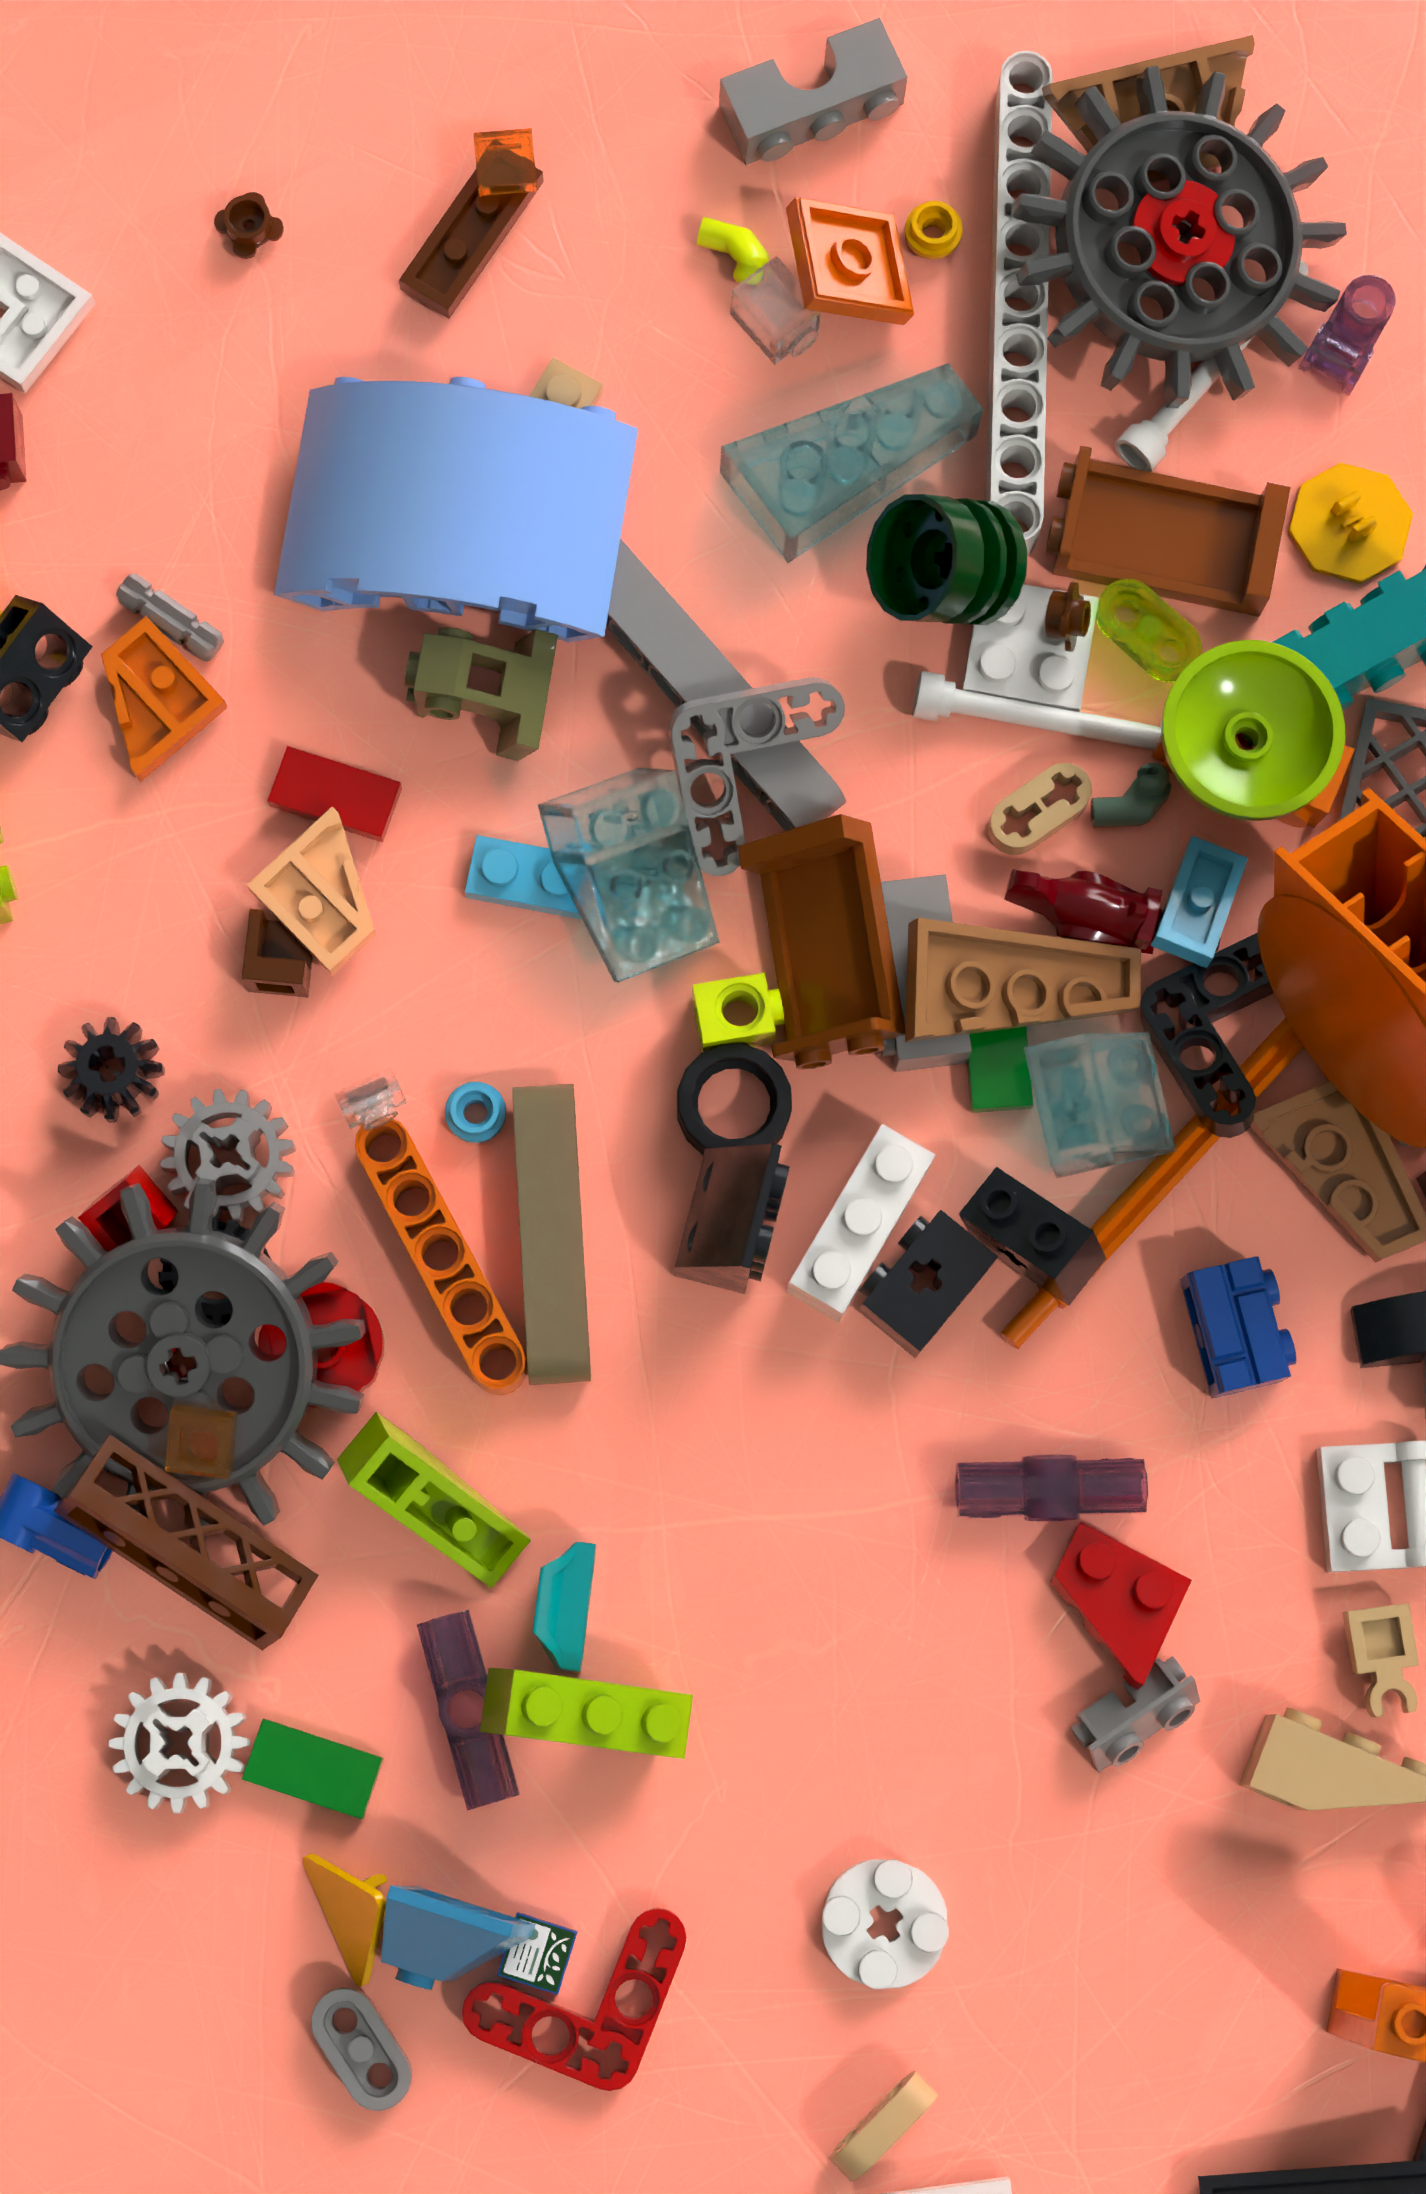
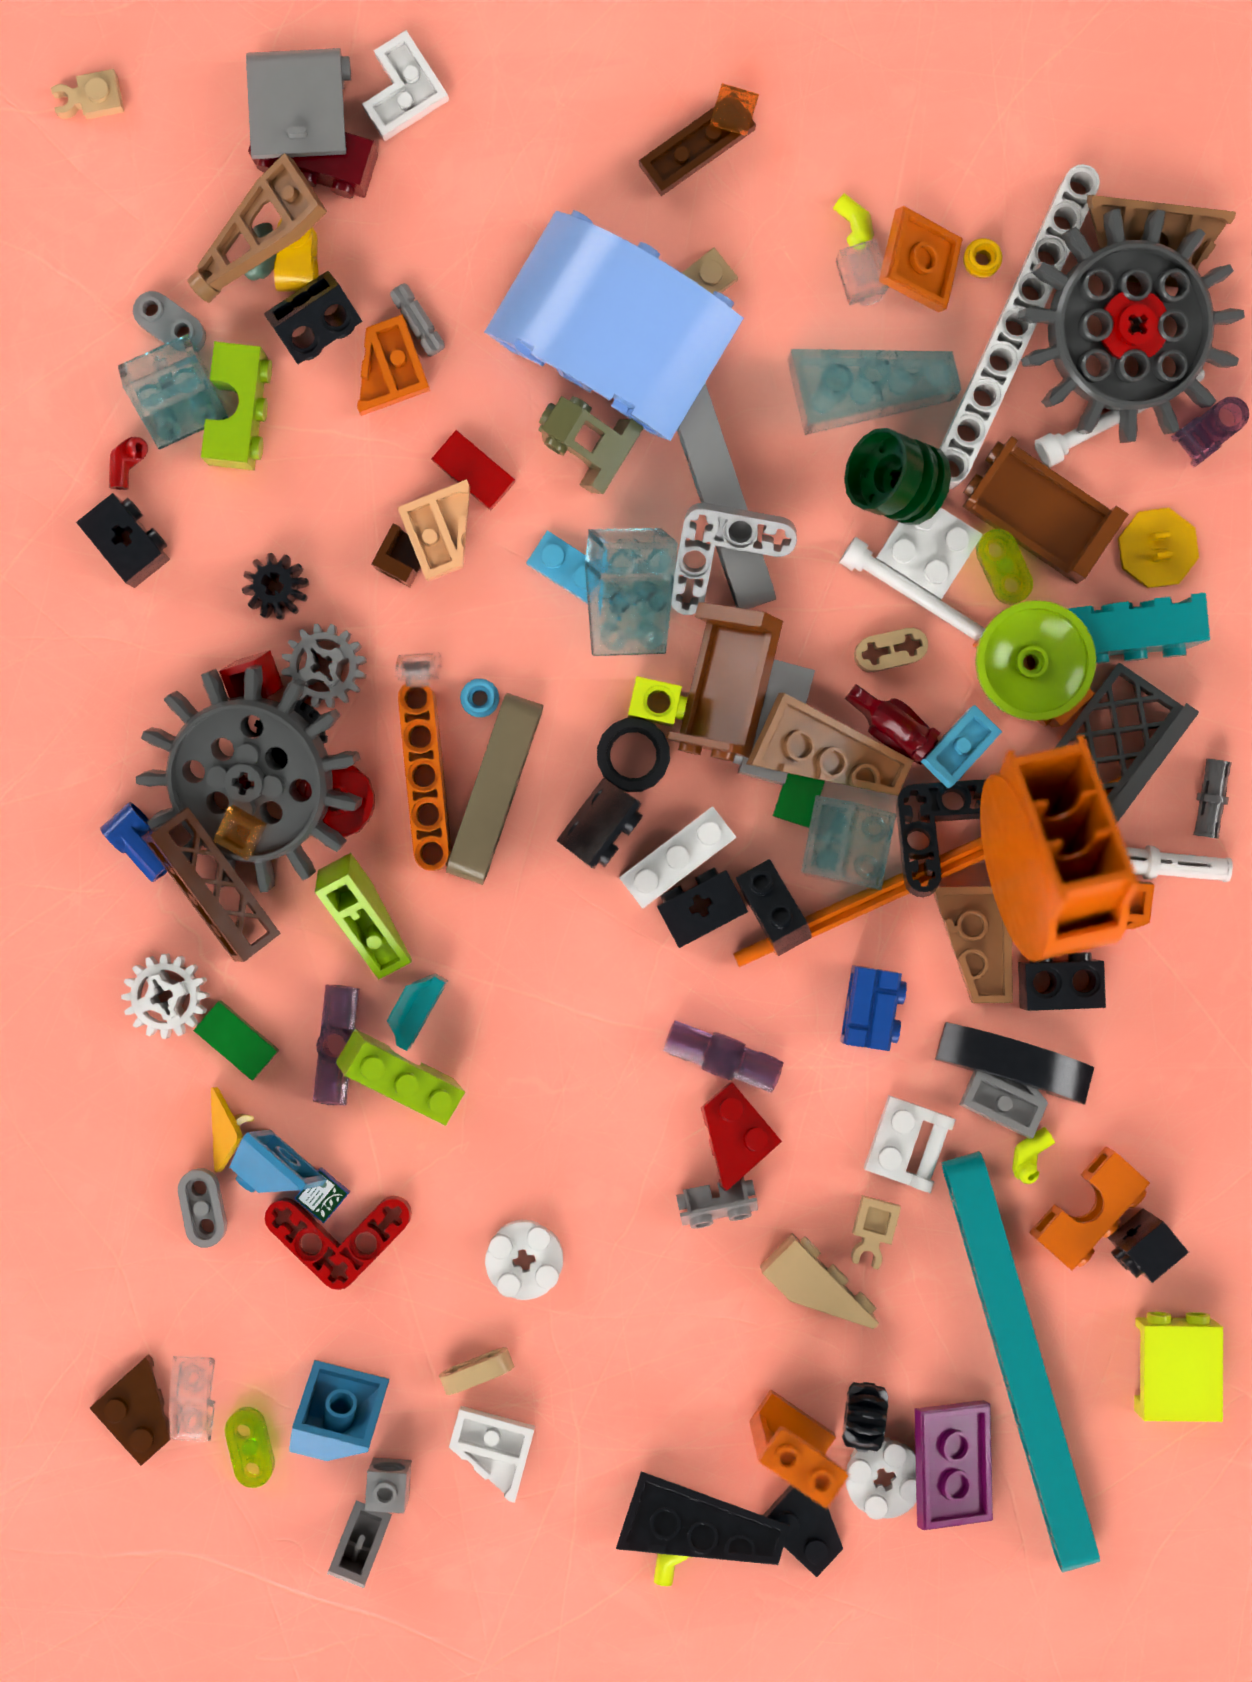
camera: 25 degrees right, 10 degrees up
(244, 209) = (558, 75): reddish brown plate -> none
(773, 116) = (914, 145): light grey arch -> none
(1067, 616) = (956, 540): reddish brown plate -> none
(1138, 803) = (952, 670): sand green arm -> none

